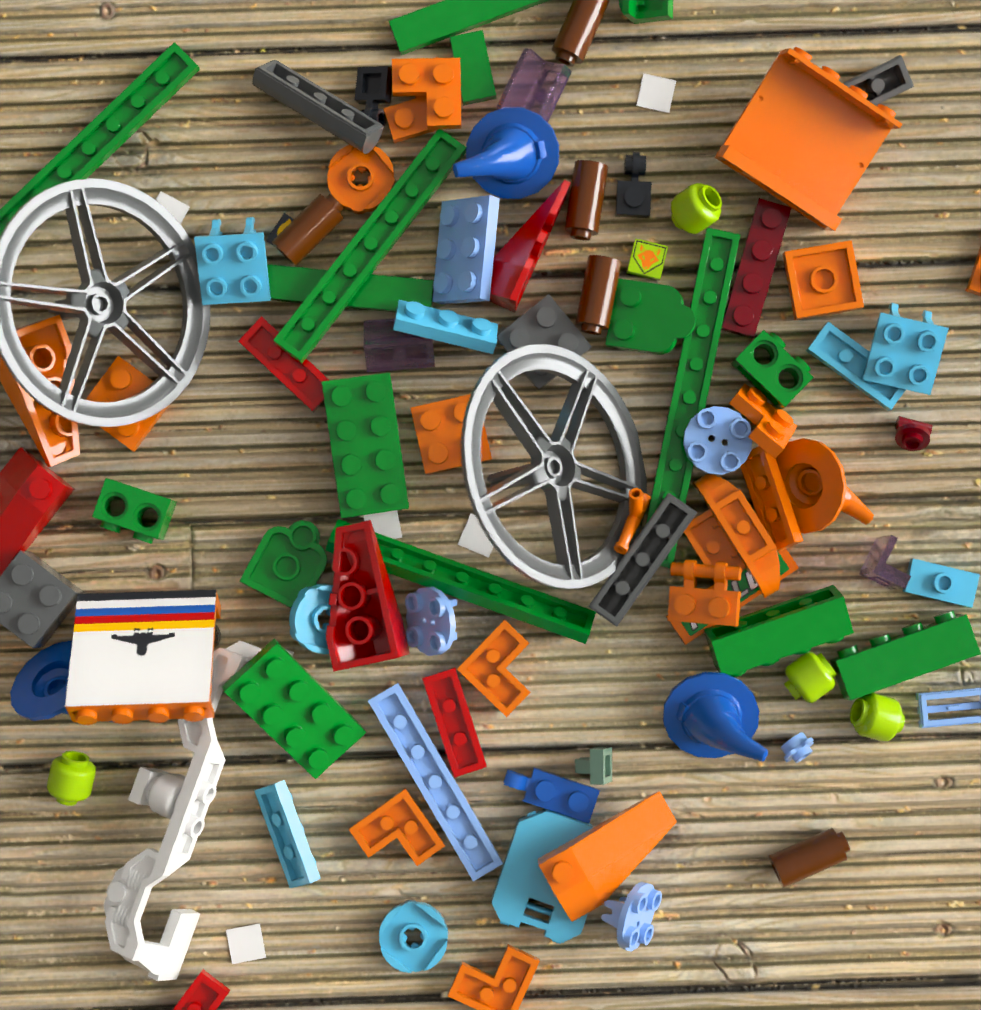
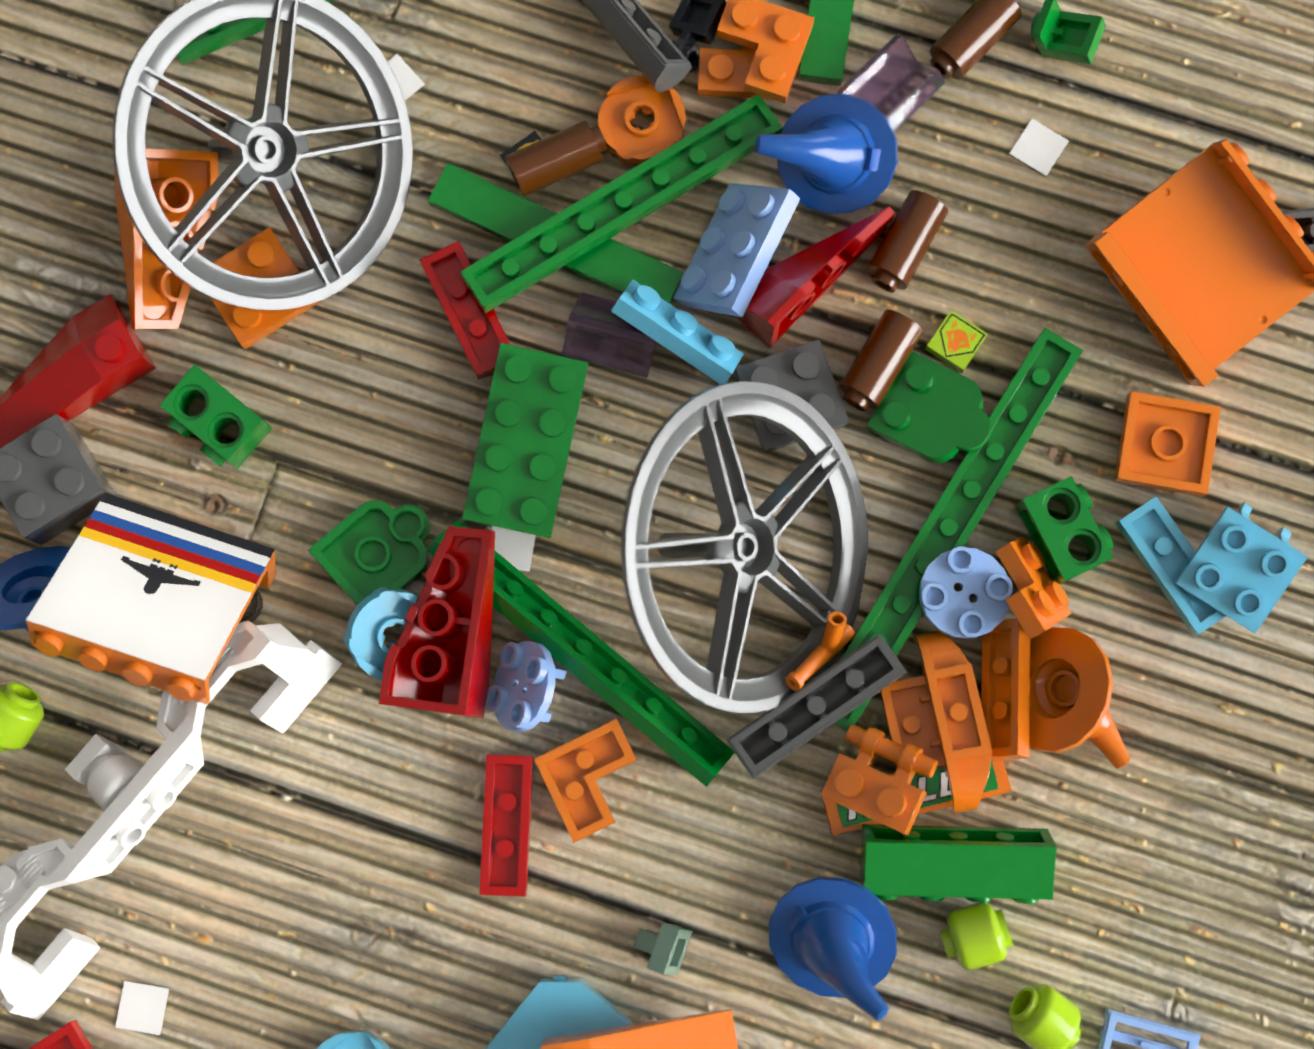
camera: 25 degrees right, 5 degrees down
(232, 266) = (446, 167): medium azure plate -> none
(287, 834) = (245, 888): medium azure plate -> none
(293, 709) = (311, 732): green plate -> none
(402, 820) = (392, 922): orange plate -> none
(435, 782) = (454, 893): light blue plate -> none
(440, 432) = (614, 461): orange plate -> none
(475, 538) = (615, 607): white sticker -> none
(555, 793) = (599, 963): blue plate -> none
(633, 196) = (967, 258): black plate -> none
(696, 208) = (1039, 298): lime head -> none
(755, 268) = (1087, 400): dark red plate -> none
(797, 748) = (928, 1021): light blue plate -> none
(877, 569) = (1114, 834): panel -> none
(904, 656) = (1109, 954): green brick -> none
(912, 434) = (1214, 675): dark red plate -> none
(942, 583) = (1187, 878): medium azure plate -> none

